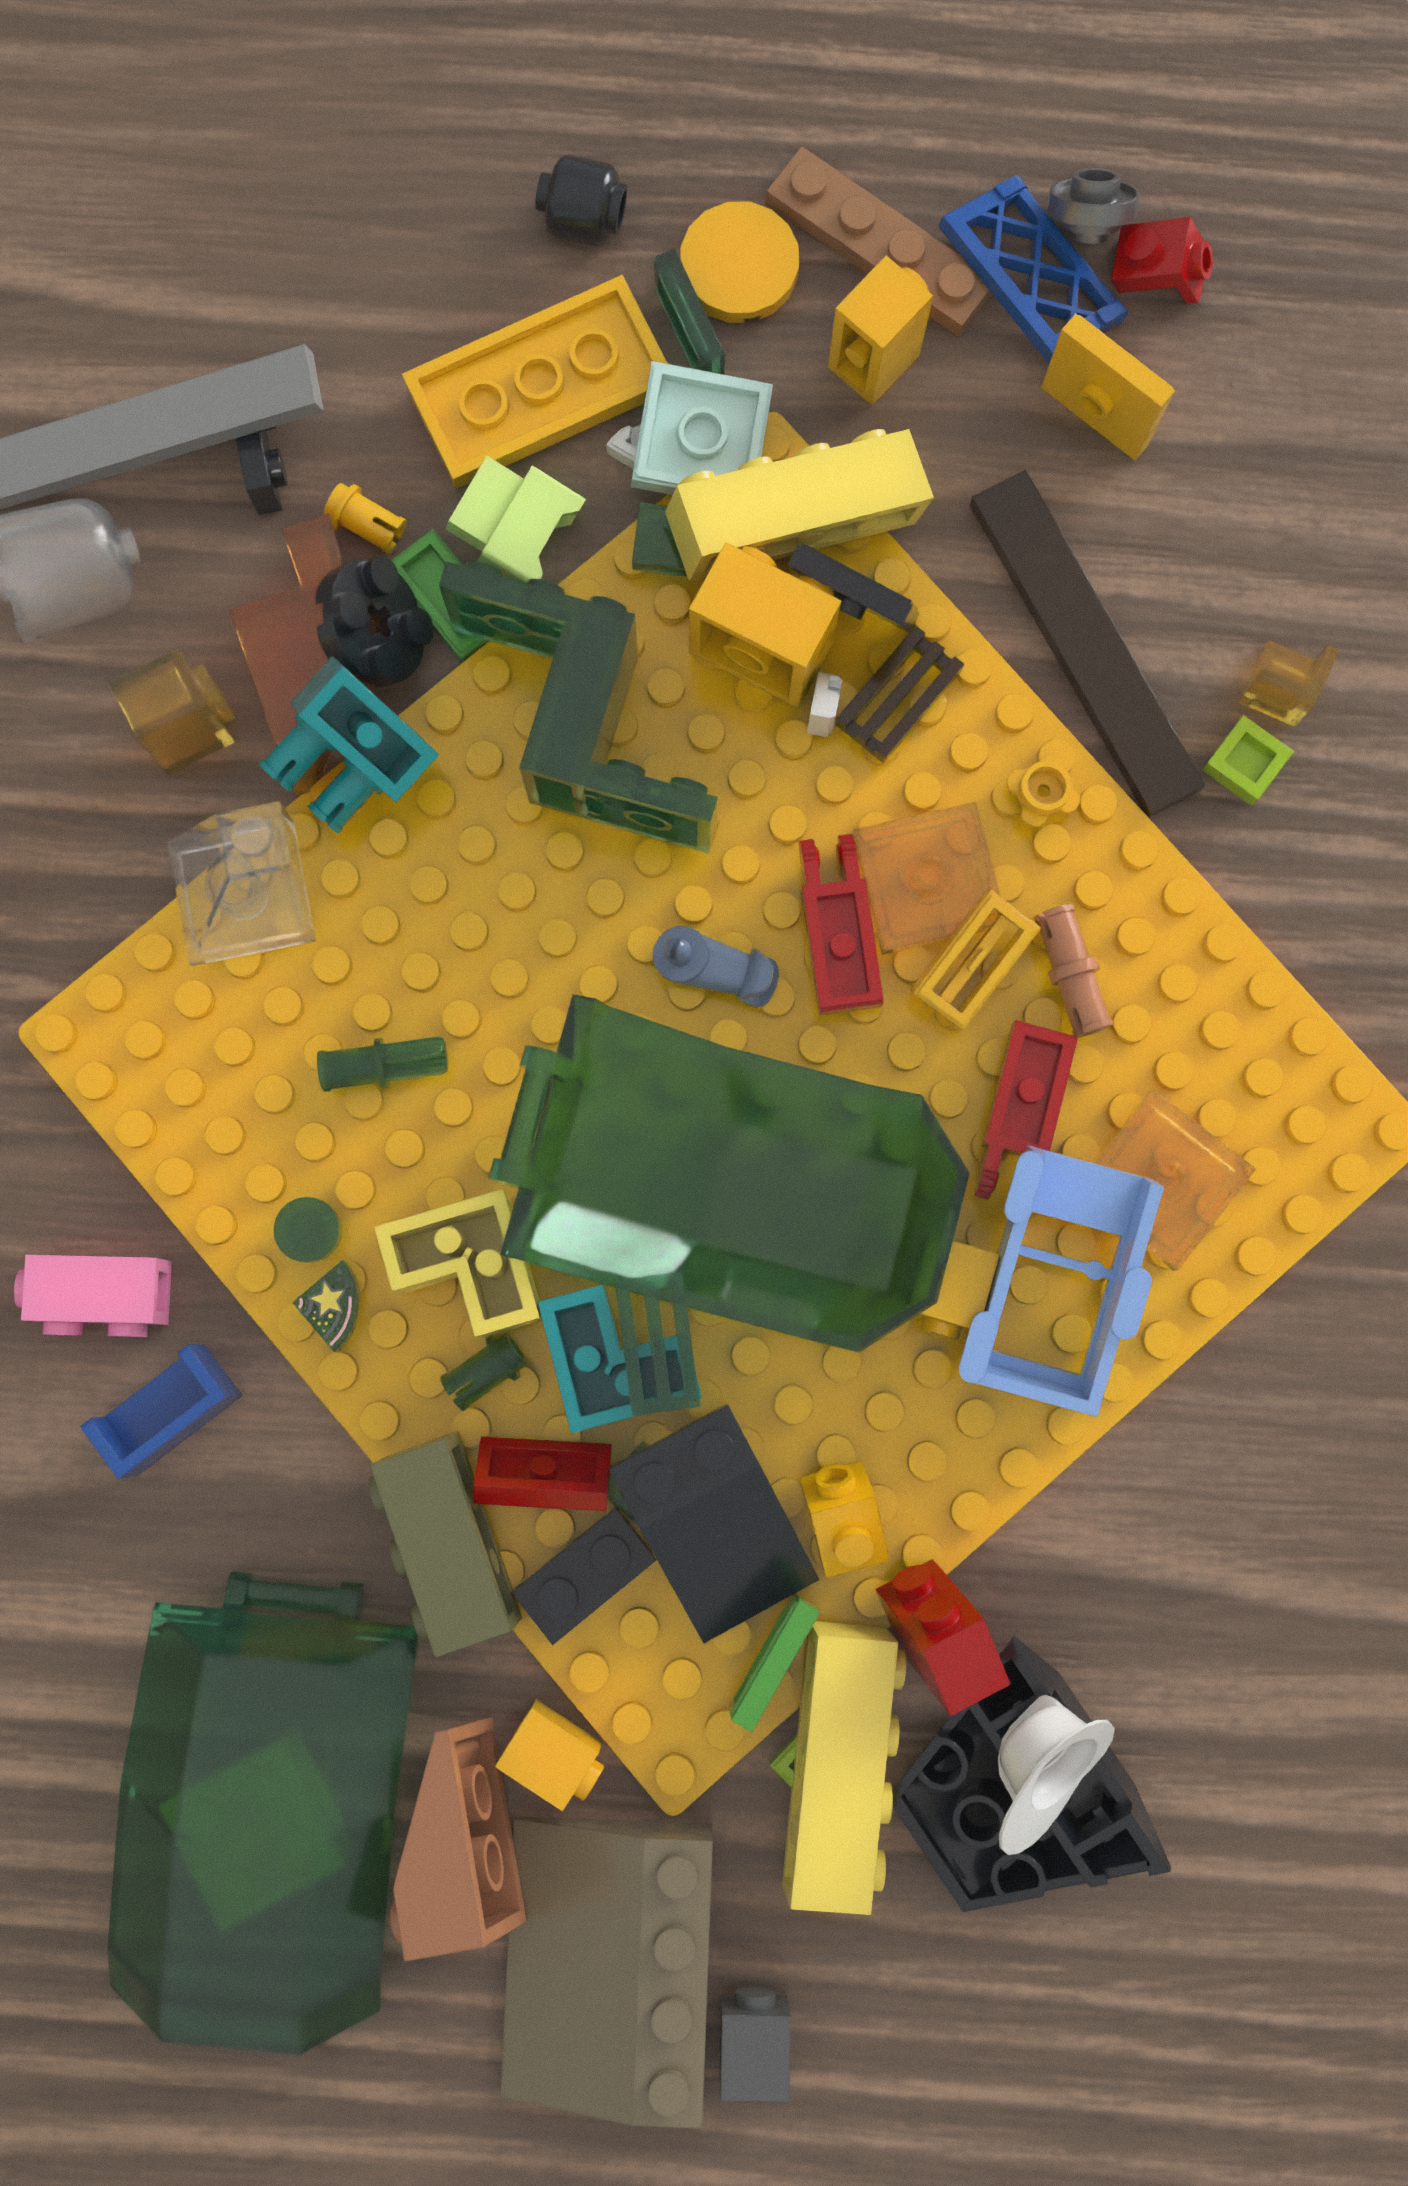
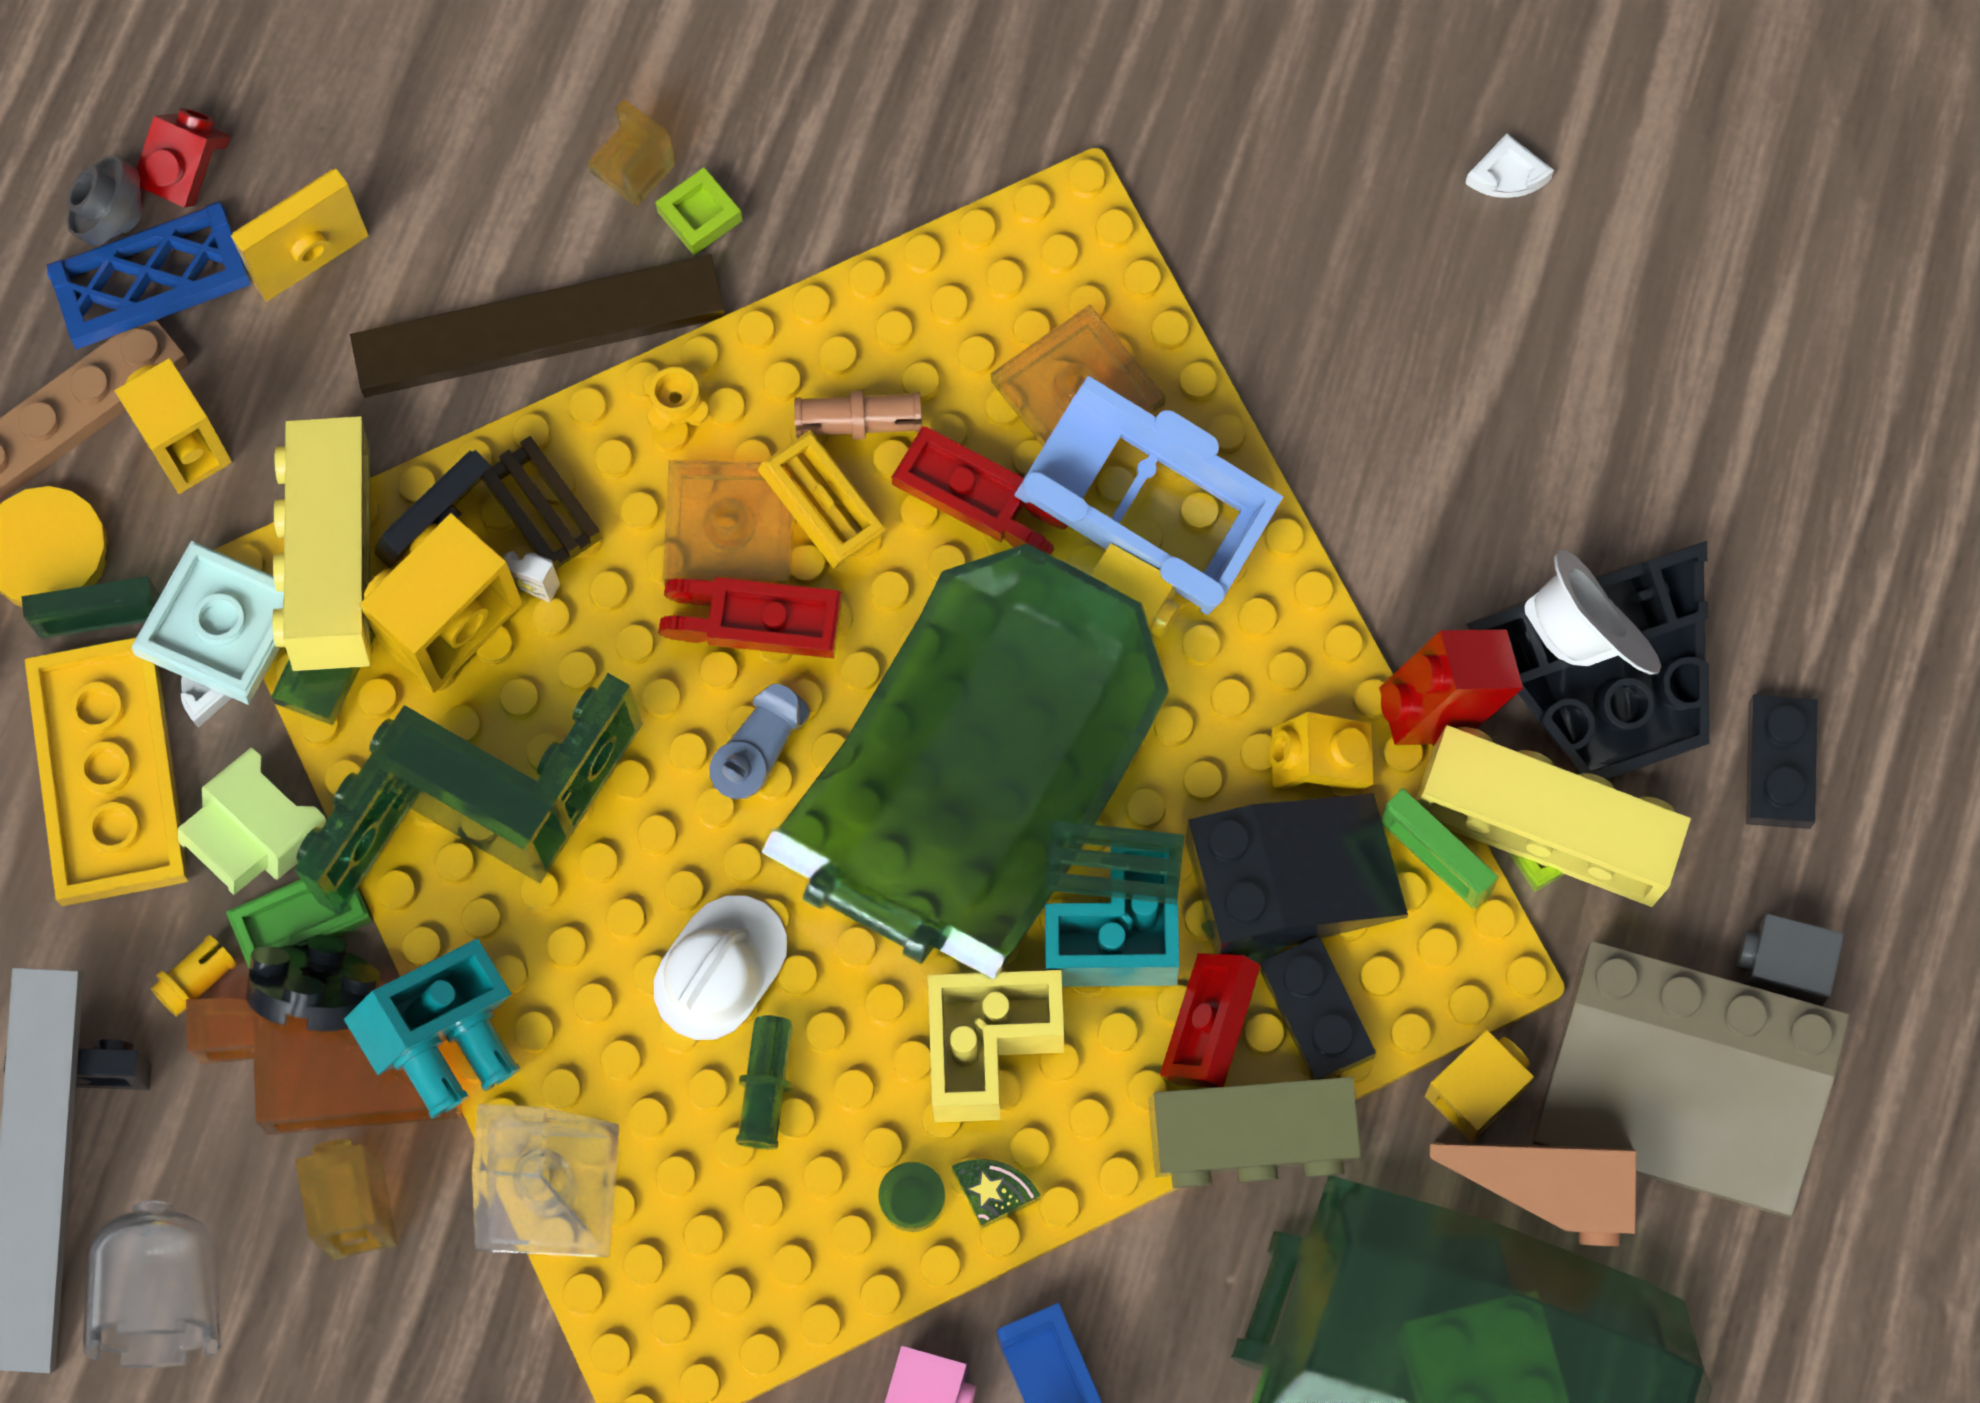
camera: 70 degrees left, 10 degrees down
(486, 1369) = (1096, 1054): clear green pin -> none
(489, 991) = (720, 967): none -> white piece
(967, 1989) = (1781, 762): none -> black plate

